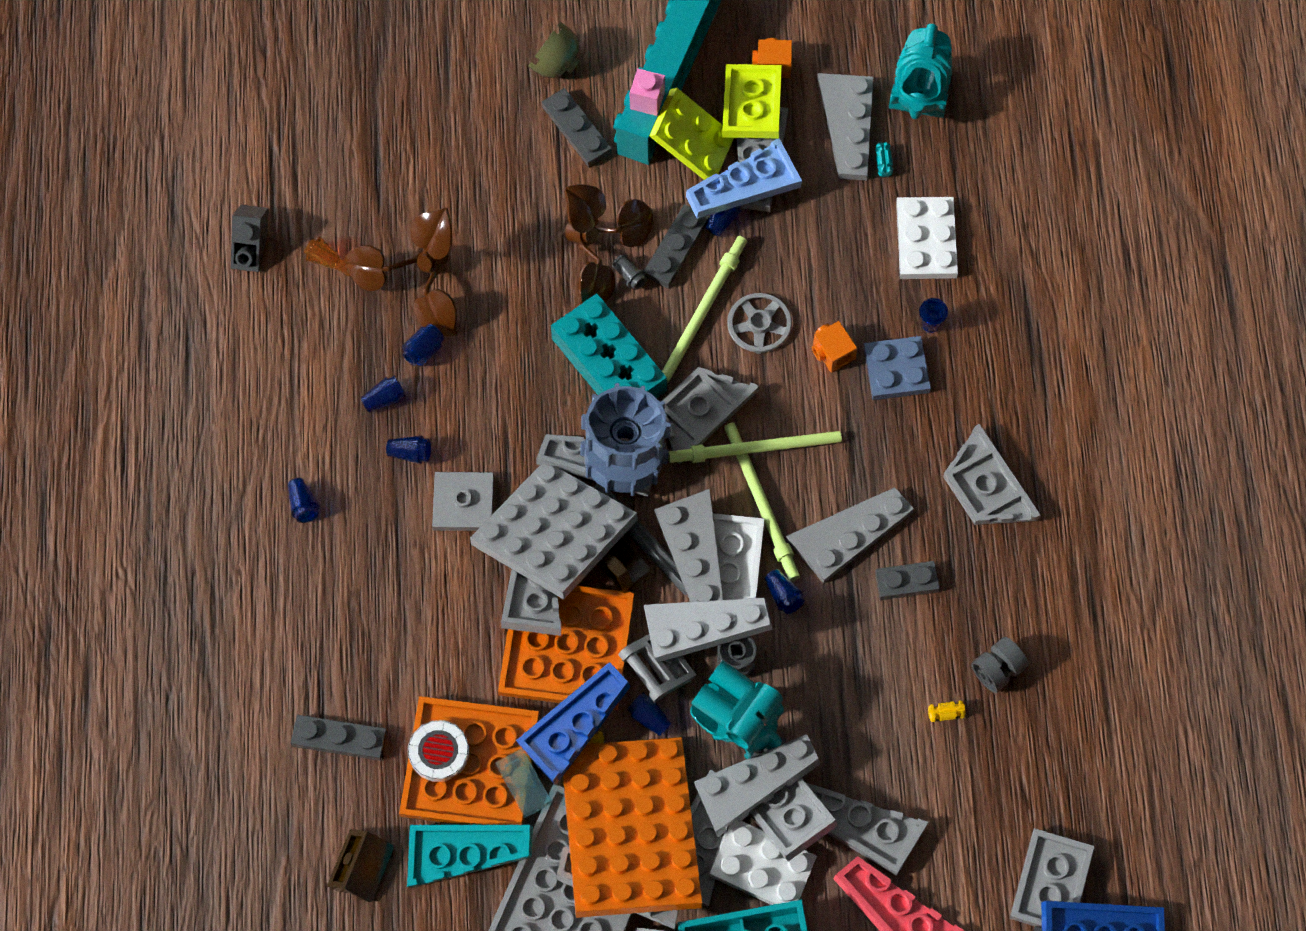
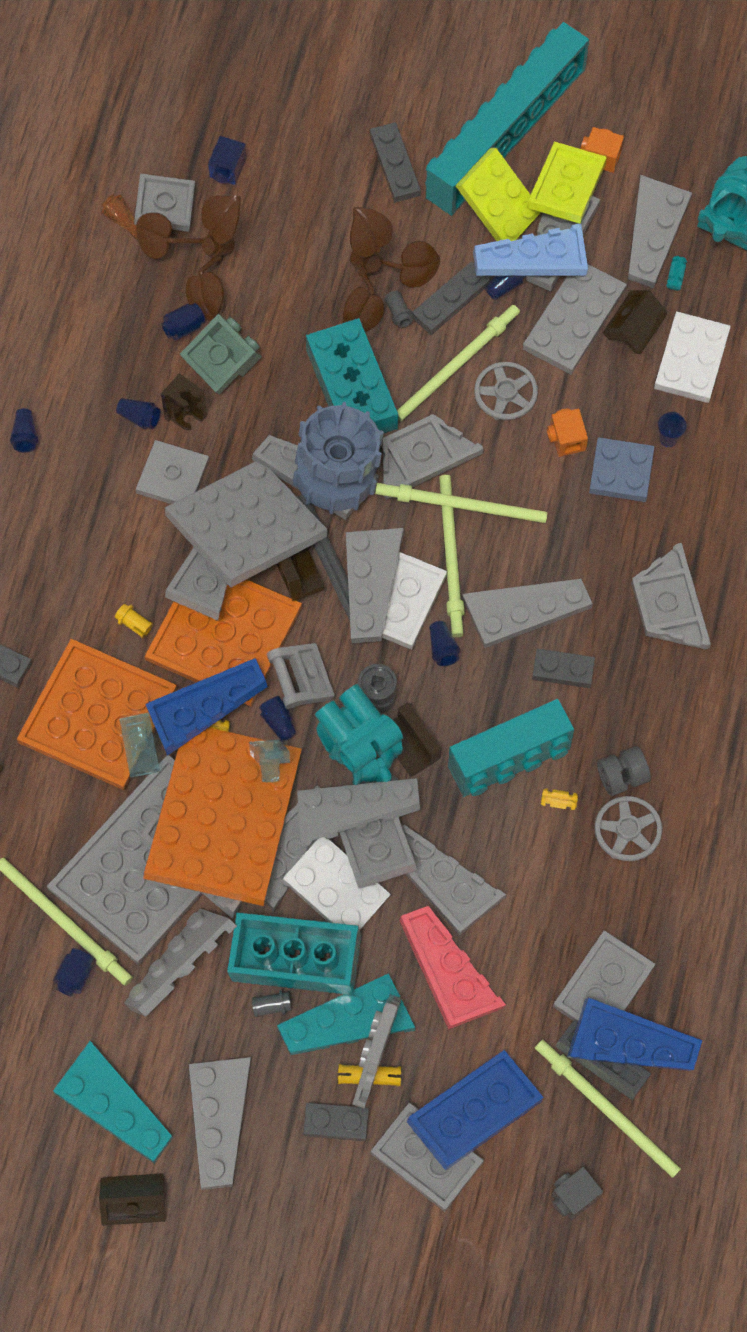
camera: 15 degrees right, 0 degrees up
(248, 237) = (55, 177): dark grey slope -> none
(364, 226) = (166, 196): none -> light grey plate
(383, 394) = (131, 356): clear blue cone -> none
(412, 172) = (227, 160): none -> clear blue brick
(438, 750) = (71, 692): tile -> none
(451, 423) = (183, 399): none -> dark brown hinge
(456, 850) = (58, 787): teal wing -> none
(471, 366) = (221, 353): none -> sand green plate
(474, 659) = (133, 620): none -> yellow pin
(557, 53) = (398, 88): olive cylinder -> none
(647, 92) = (465, 143): bright pink brick -> none
(658, 755) = (269, 756): none -> clear light blue tile
(695, 626) = (348, 648): light grey wing -> none
(797, 699) = (418, 745): none -> dark brown panel
(801, 233) = (574, 318): none -> light grey plate
(861, 216) = (636, 320): none -> dark brown panel
(886, 676) = (510, 748): none -> teal brick
(1021, 720) = (628, 829): none -> light grey wheel

